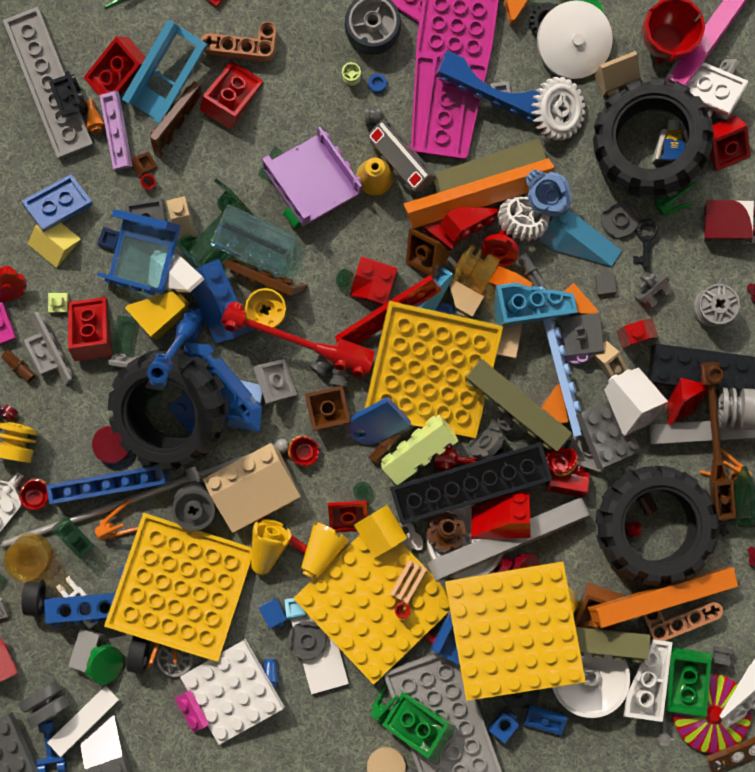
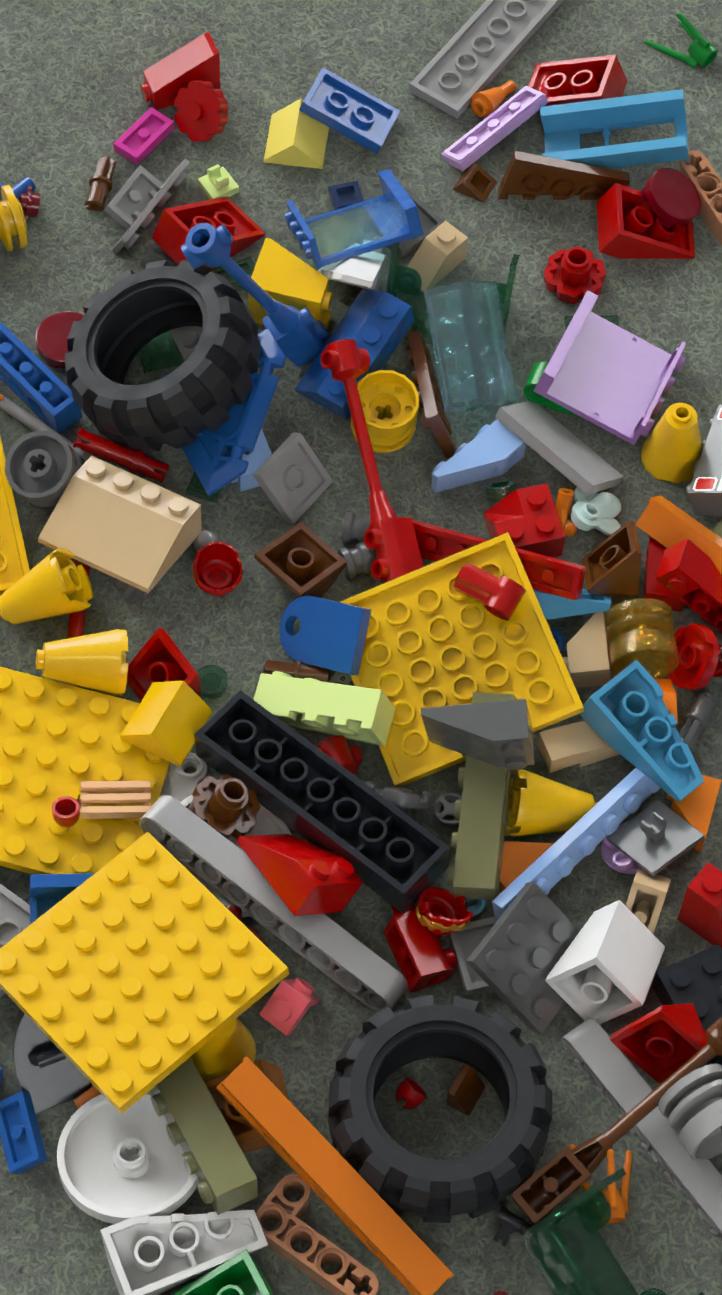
camera: 55 degrees right, 25 degrees down
(68, 95) = (500, 51): black bracket -> none
(151, 178) = (448, 196): red hinge -> none
(193, 470) = (120, 455): none -> red pin
(225, 69) = (672, 197): none -> dark red tile
(237, 152) = (574, 273): none -> red plant
(320, 273) = (485, 457): none -> light blue slope
(339, 233) = (559, 447): none -> light grey tile
(374, 255) = (563, 507): none -> orange arm
(385, 236) = (596, 511): none -> light aqua plate
(420, 331) = (497, 595): none -> red piece
(503, 388) = (485, 731): none -> dark grey slope
(534, 374) = (543, 805): none -> yellow cone
(556, 553) = (289, 1004): none -> coral bracket

